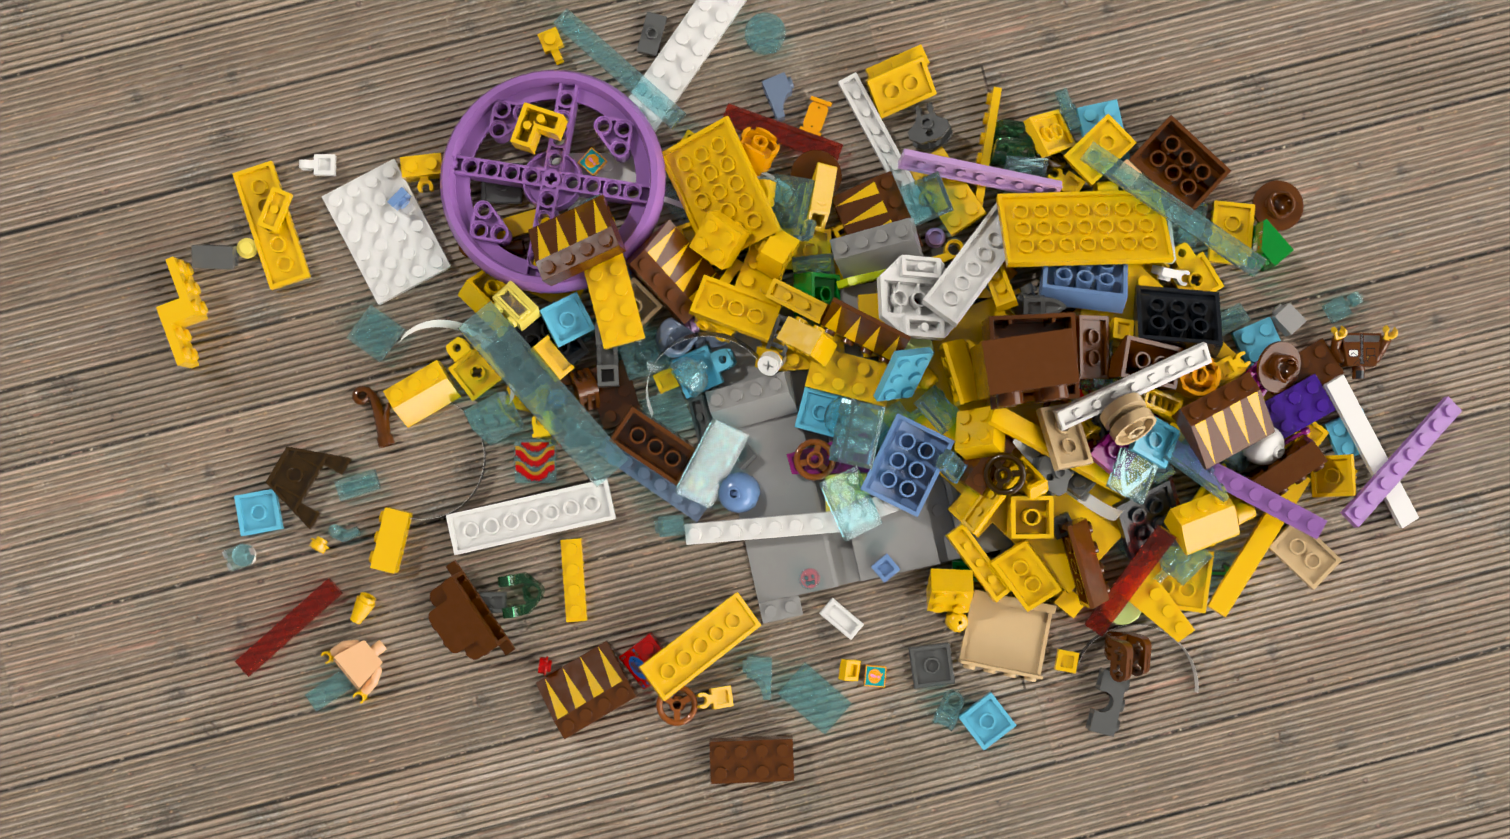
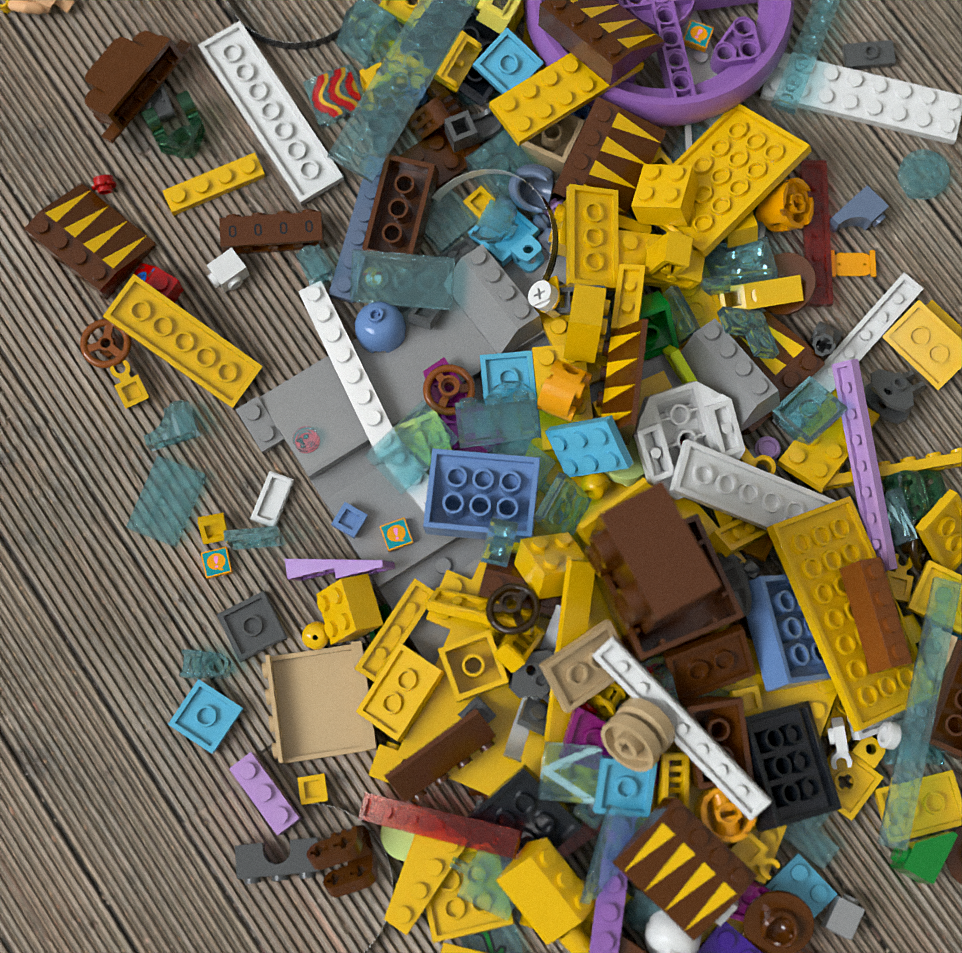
camera: 70 degrees right, 10 degrees down
(632, 548) = (271, 232): none -> reddish brown brick
(651, 593) = (227, 271): none -> white brick
(751, 759) = (68, 451): reddish brown brick -> none
(845, 213) = (751, 325): none -> clear light blue plate
(855, 376) = (563, 391): none -> light orange brick
(869, 162) = (825, 338): none -> dark grey piece
(870, 642) = (254, 537): none -> clear light blue tile
(907, 537) = (396, 534): none -> tile
(919, 583) = (311, 568): none -> slope
(1052, 699) = (265, 794): none -> lavender arch
(1095, 211) = (876, 615): none -> dark orange slope
(1180, 237) = (889, 735): none -> white tile

